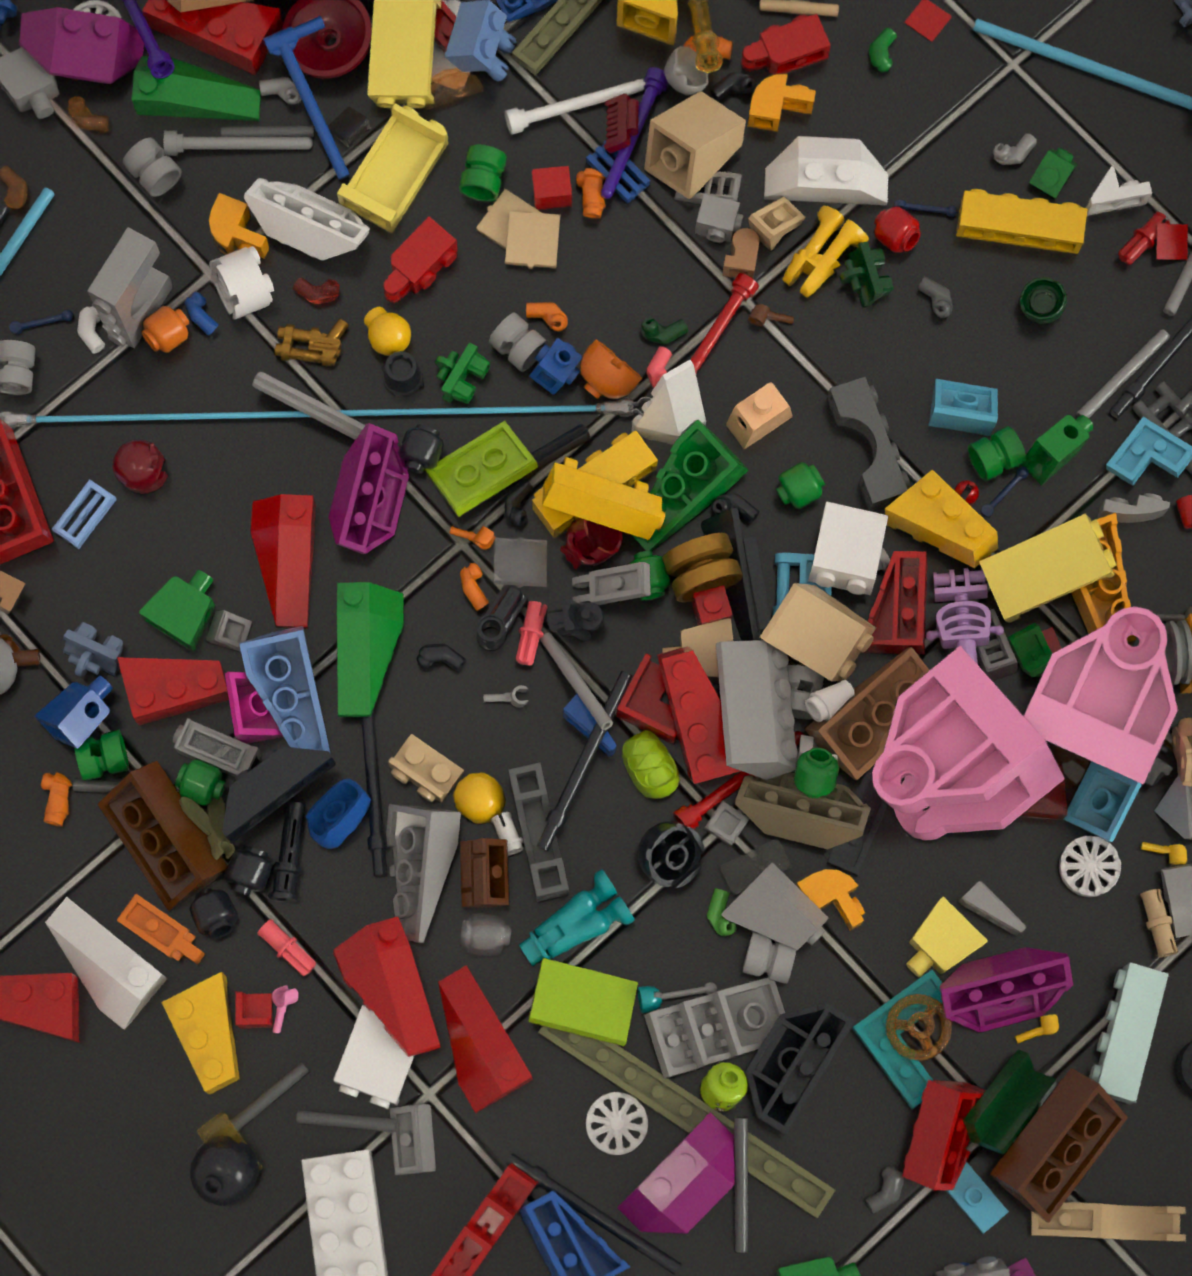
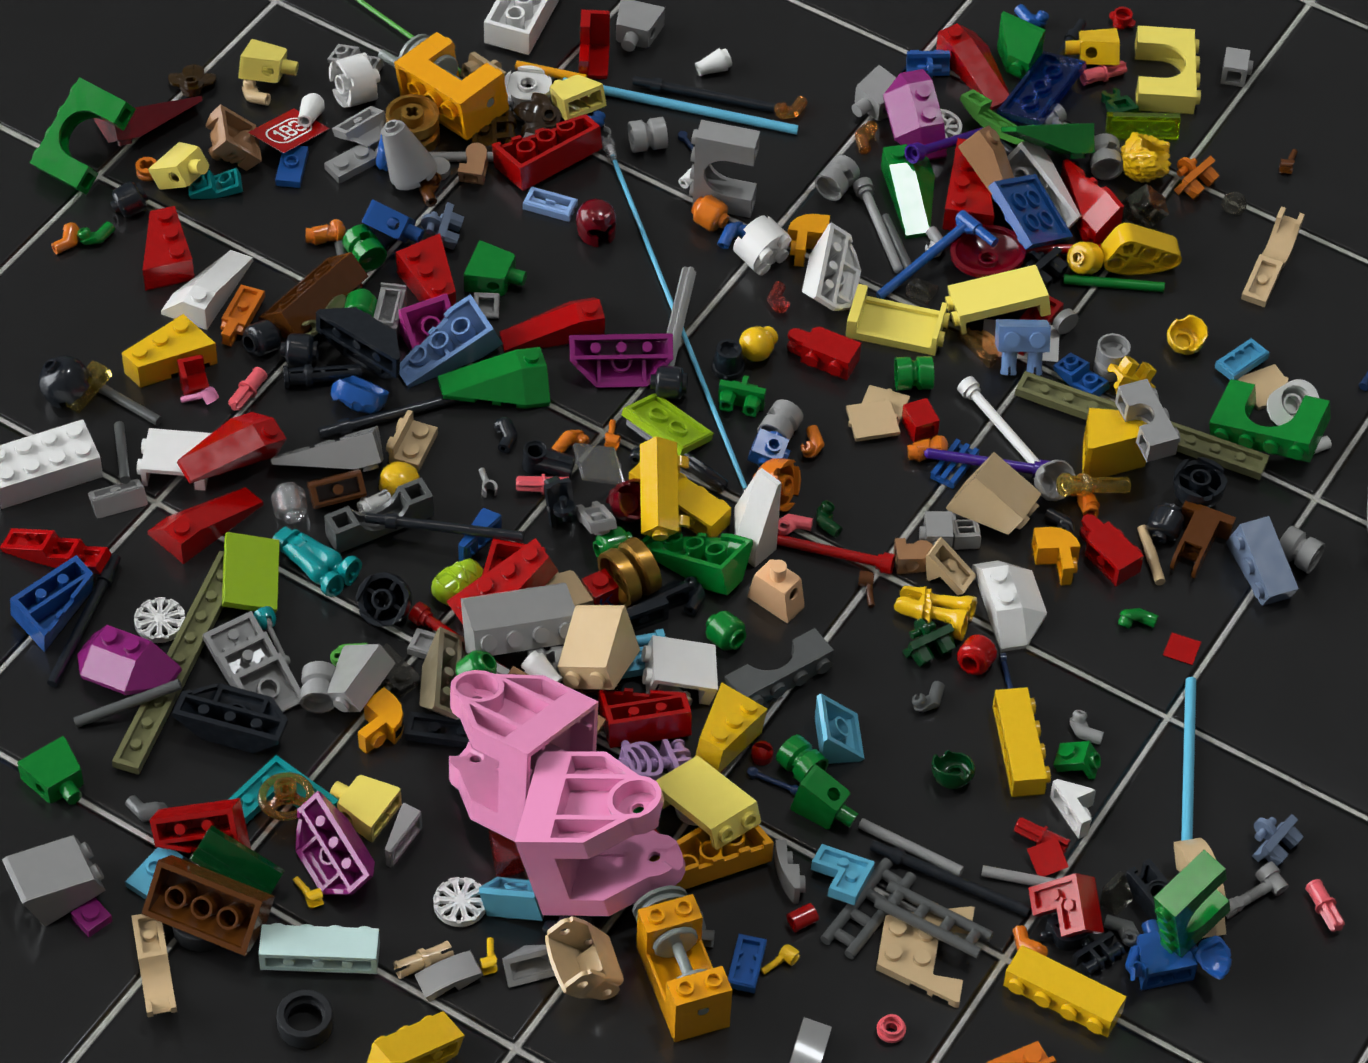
camera: 75 degrees right, 25 degrees down
(322, 347) = (733, 310): pearl gold piece -> none
(576, 681) = (507, 511): light grey piece -> none
(622, 122) = (1005, 452): dark red piece -> none
(723, 1086) = (203, 672): lime head -> none

